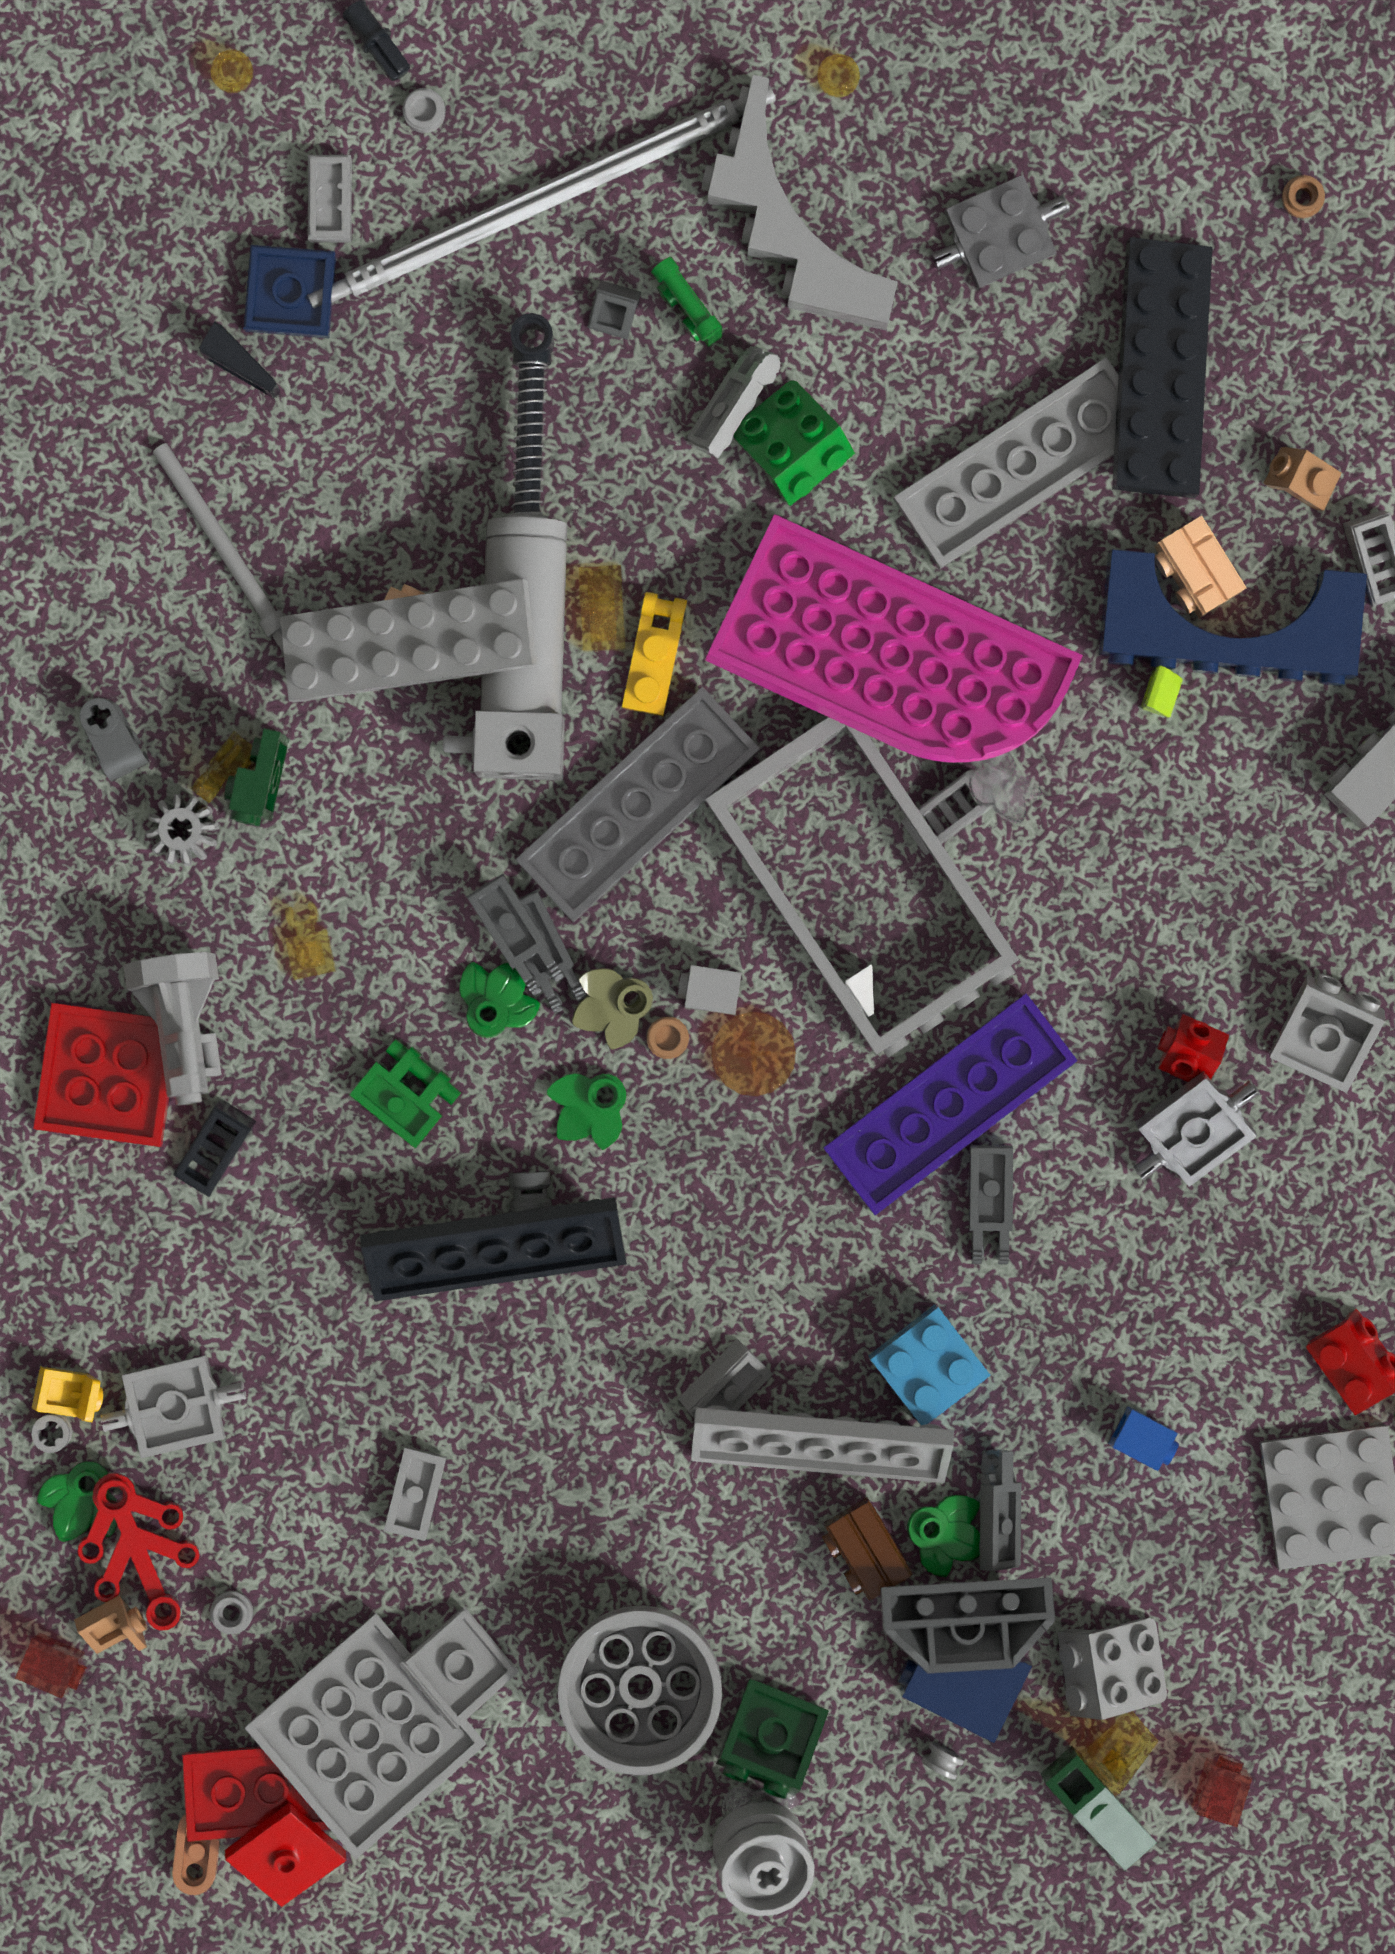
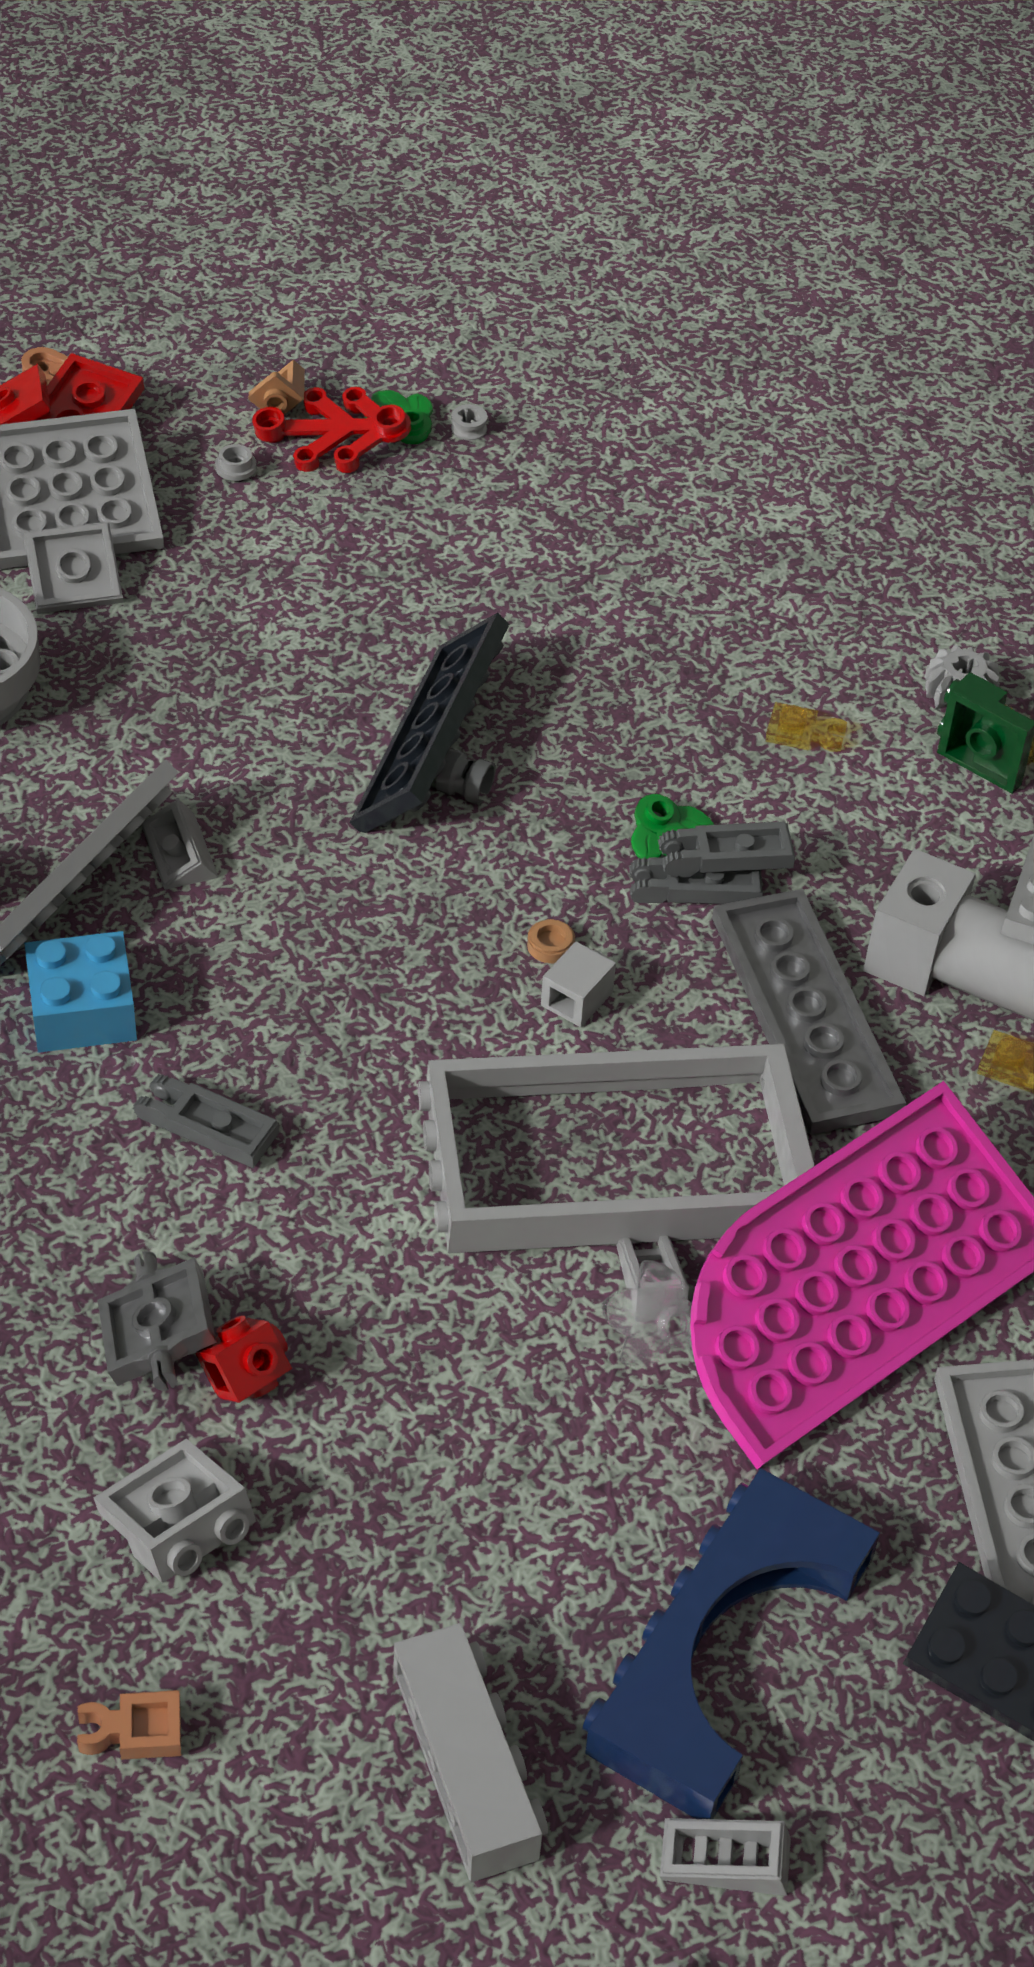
camera: 115 degrees right, 40 degrees down
(52, 1666) = (276, 345): clear red brick -> none
(67, 1393) = (496, 436): yellow bracket -> none
(102, 1076) = (760, 558): red plate -> none
(173, 1406) = (438, 492): light grey plate -> none
(174, 995) = (809, 602): light grey piece -> none
(233, 1118) = (660, 614): black slope -> none
(396, 1103) = (615, 723): green plate -> none
(415, 1493) = (247, 603): light grey plate -> none
(583, 1111) = (519, 859): green plate -> none
(605, 1006) = (613, 905): olive plate -> none
(654, 656) = (925, 1066): yellow plate -> none
(753, 1054) = (491, 999): clear orange tile -> none
(862, 990) = (499, 1102): white slope -> none
(950, 1104) = (334, 1133): dark purple plate -> none
(1161, 691) = (678, 1526): lime slope -> none
(1198, 568) = (812, 1633): light nougat brick -> none
(1303, 476) = (871, 1810): medium nougat bracket -> none

